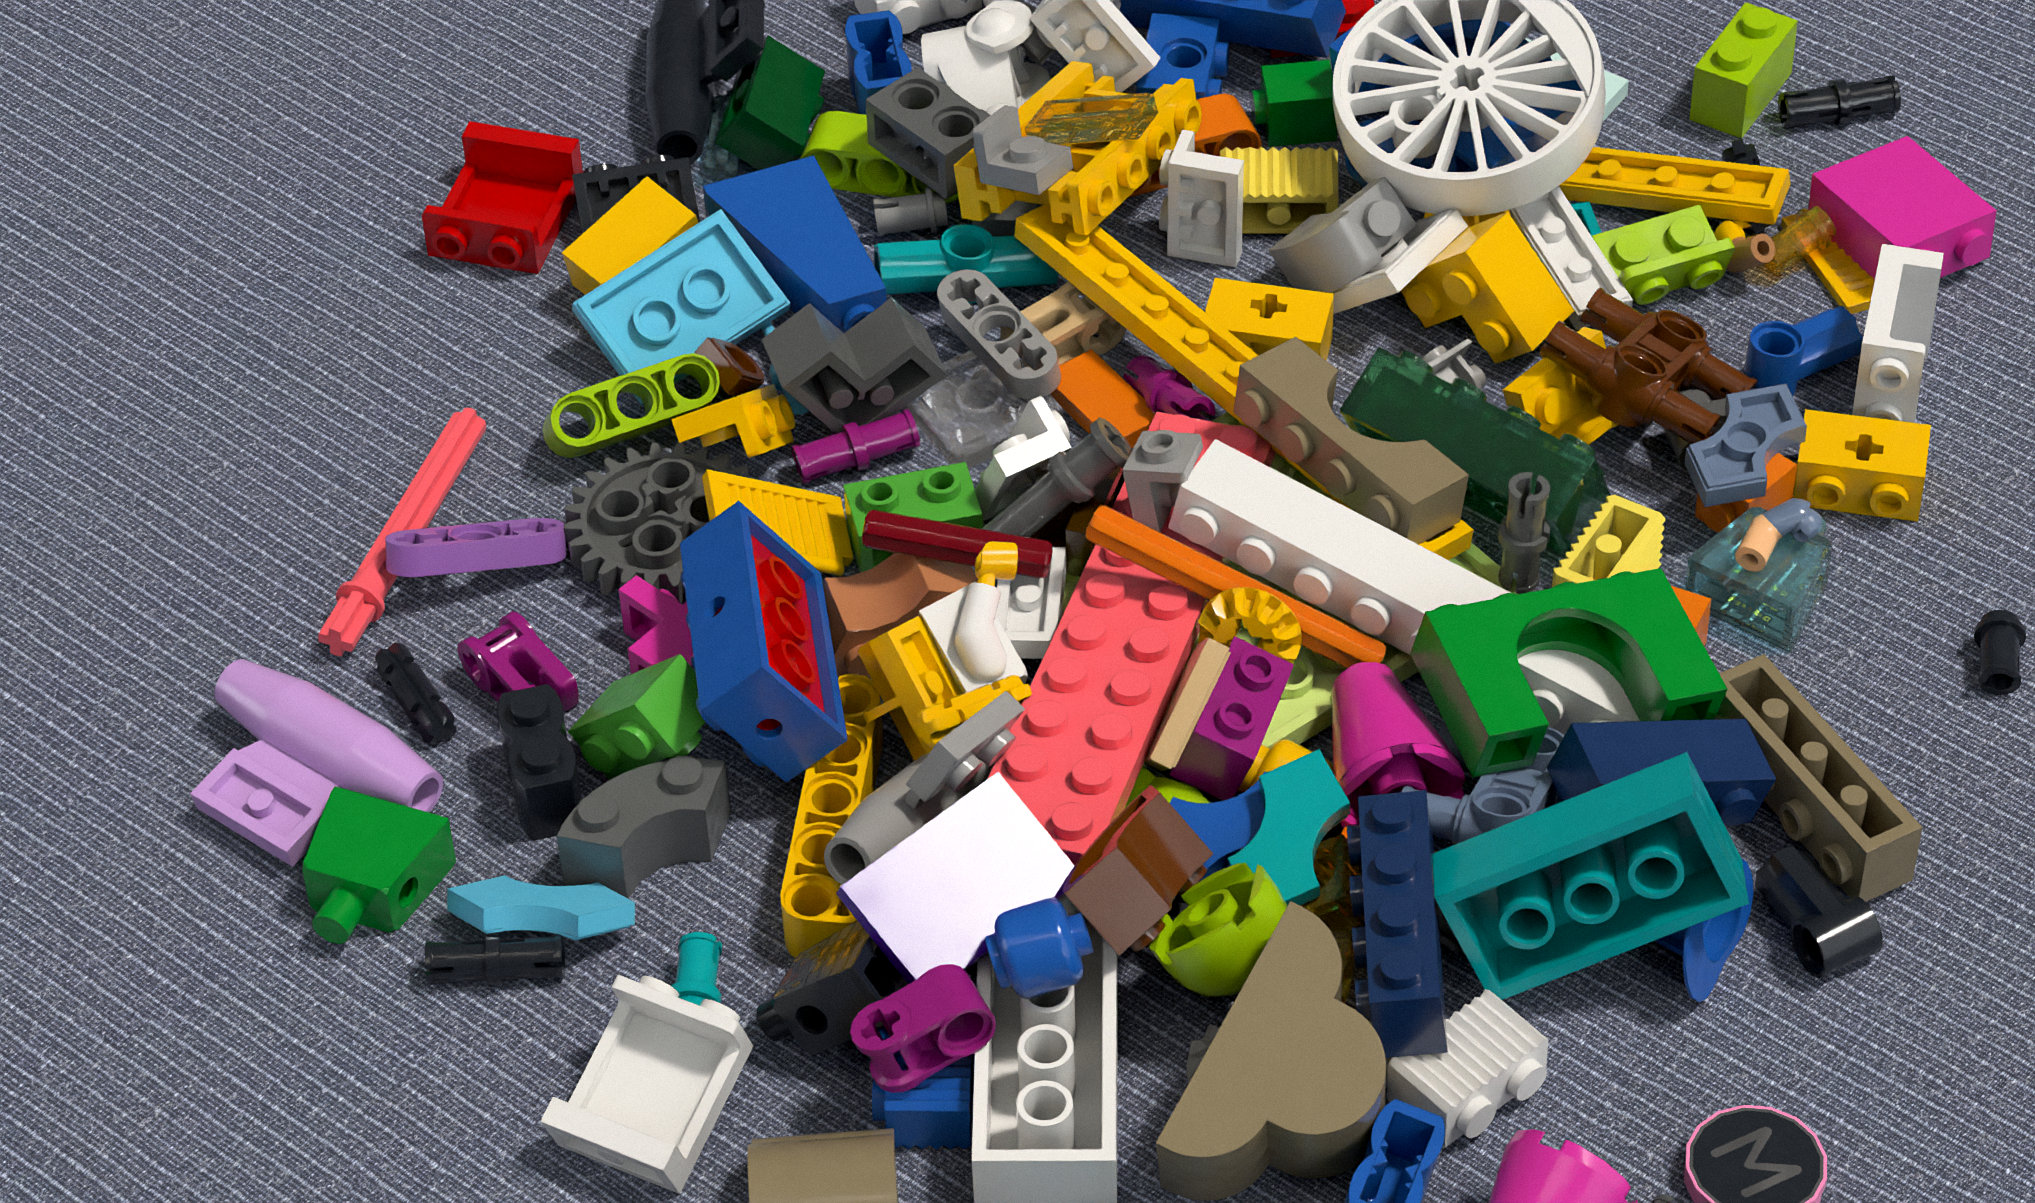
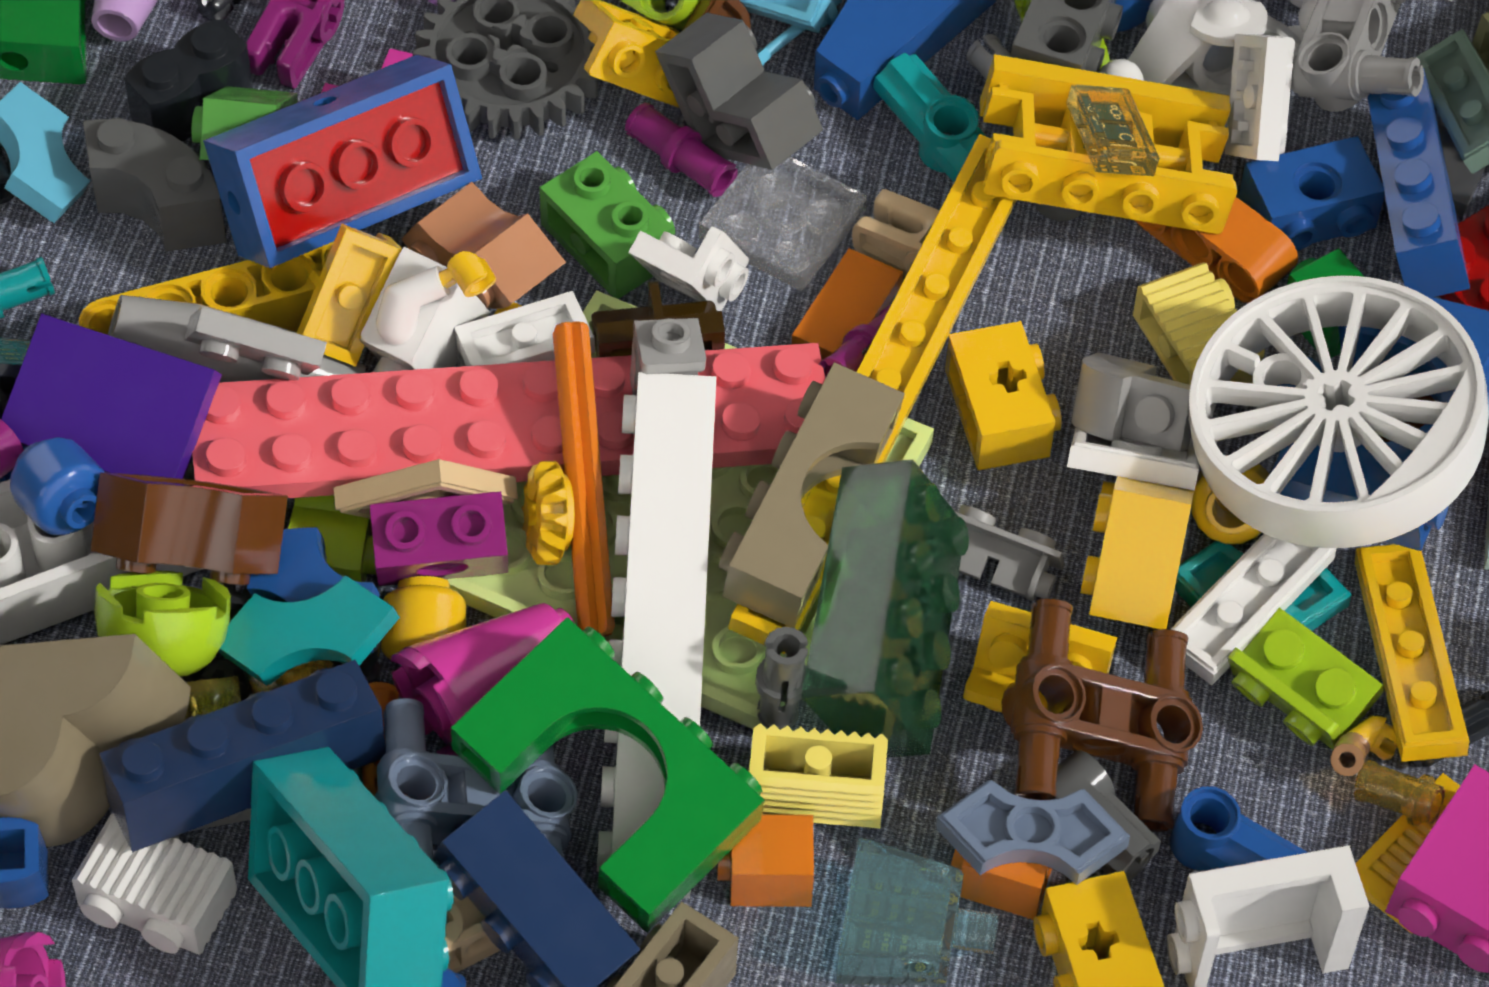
camera: 60 degrees right, 10 degrees up
(803, 518) = (534, 121): yellow window -> none
(938, 721) = (343, 343): yellow axle -> none
(949, 541) = (529, 249): dark red axle -> none
(1003, 355) = (853, 212): light grey beam -> none
(1017, 161) = (1019, 89): light grey bracket -> none
(1068, 480) = (636, 295): dark grey pin -> none
(1202, 204) = (1117, 267): white bracket -> none
(1767, 528) = (922, 889): arm -> none

